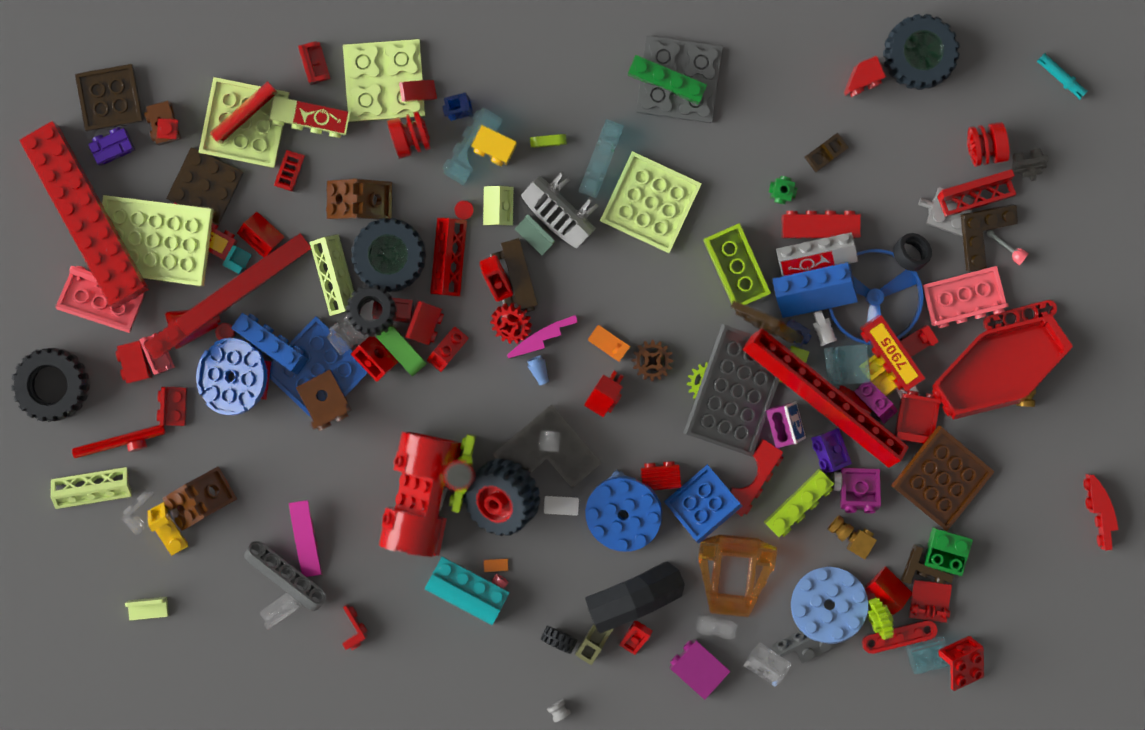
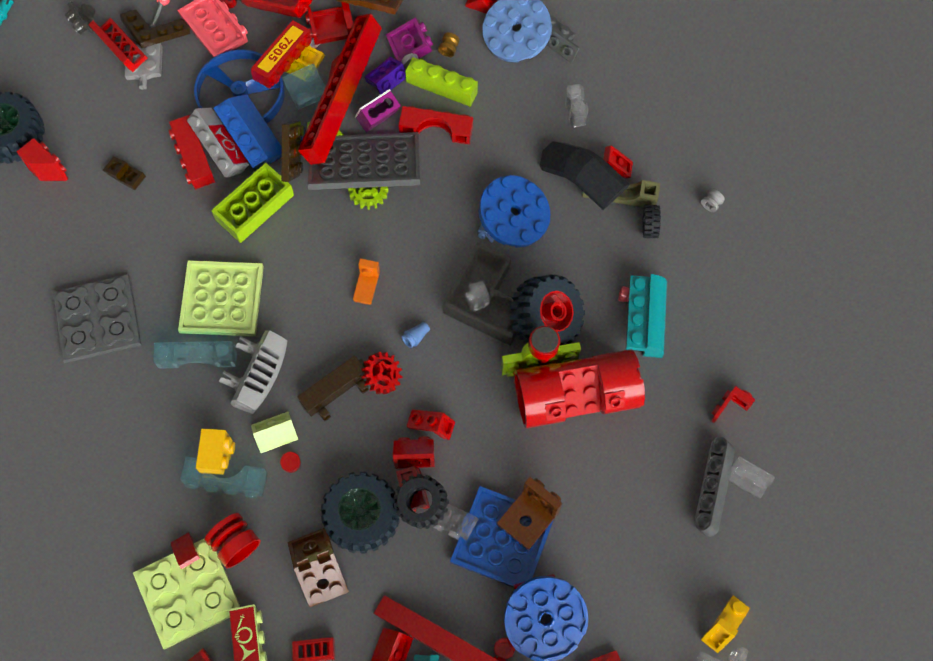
camera: 110 degrees left, 20 degrees down
(147, 608) = (812, 611): yellowish green panel -> none
(198, 499) = (682, 601): reddish brown bracket -> none
(269, 343) = (495, 595): blue brick -> none
(305, 538) = (669, 482): dark pink slope -> none
(336, 273) = (385, 566): yellowish green fence -> none
(374, 358) = (467, 485): red brick -> none
(402, 350) = (450, 462): bright green beam -> none
(445, 257) = (342, 459): red fence -> none
(459, 101) = (183, 506): clear blue brick -> none
(493, 565) = (611, 304): orange piece -> none
(496, 278) = (343, 400): red brick -> none
(534, 235) = (289, 386): sand green panel -> none
(536, 342) = (383, 344): dark pink slope -> none
(546, 141) = (194, 409): lime beam -> none
(561, 505) = (530, 266): white sticker -> none
(605, 395) = (413, 265): red brick -> none
(645, 353) = (368, 244): reddish brown gear -> none
(661, 477) = (466, 194): red brick -> none
(668, 79) = (94, 339): green arch -> none
(699, 668) = (618, 105): magenta panel -> none
(703, 504) = (476, 149): blue plate -> none
(759, 554) = (498, 89): clear orange windscreen -> none
(767, 664) = (589, 54): clear brick -> none
(776, 193) = (170, 192): green brick -> none
(823, 329) = (285, 115): white hinge -> none
(861, 542) = (454, 23): pearl gold brick -> none
(876, 401) = (327, 57): magenta bracket -> none
(919, 340) = (258, 40): red bracket -> none
(920, 244) = (187, 72): black tyre -> none
(983, 144) = (72, 48): red wheel -> none

